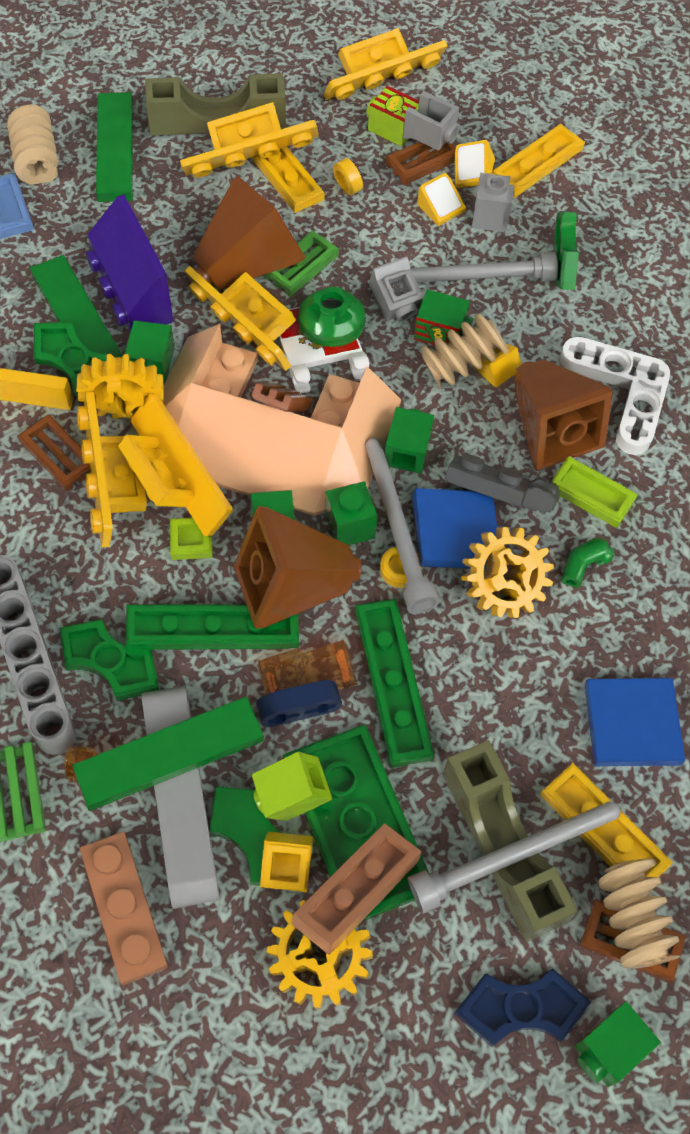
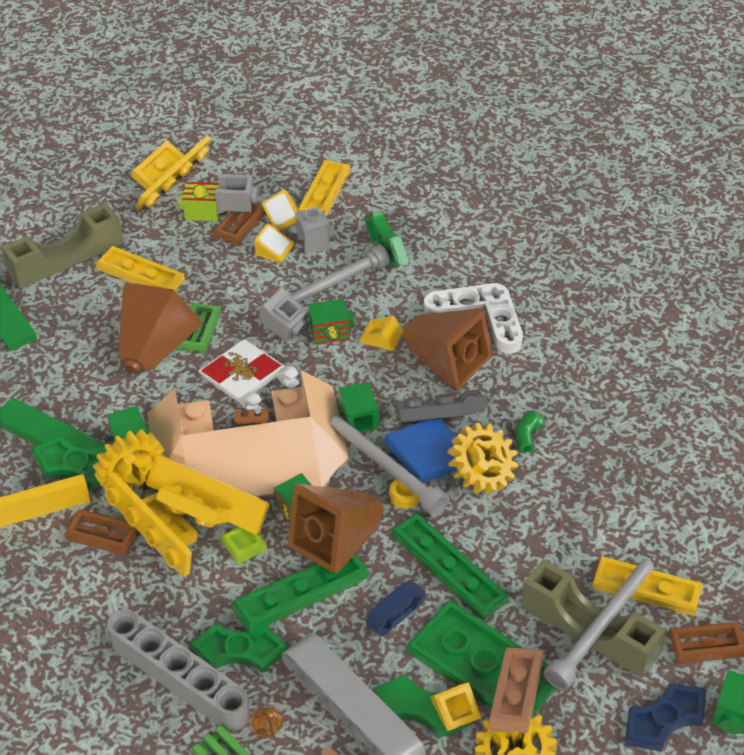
camera: 25 degrees left, 15 degrees down
(128, 267) = (77, 380): dark purple slope -> none
(167, 753) = (331, 675): green tile -> none
(246, 136) = (102, 257): yellow bracket -> none
(251, 309) = (186, 373): yellow bracket -> none
(290, 787) = (428, 657): lime brick -> none
(300, 668) = (376, 588): clear orange slope -> none
(335, 325) = (247, 359): green piece -> none
(348, 176) = (195, 255): yellow tile -> none
(351, 513) = (351, 470): green brick -> none
(463, 350) = (358, 332): tan piece -> none
(594, 492) = (505, 386): lime tile -> none
(634, 722) = (623, 514): blue tile -> none
(637, 914) = (701, 618): tan piece -> none

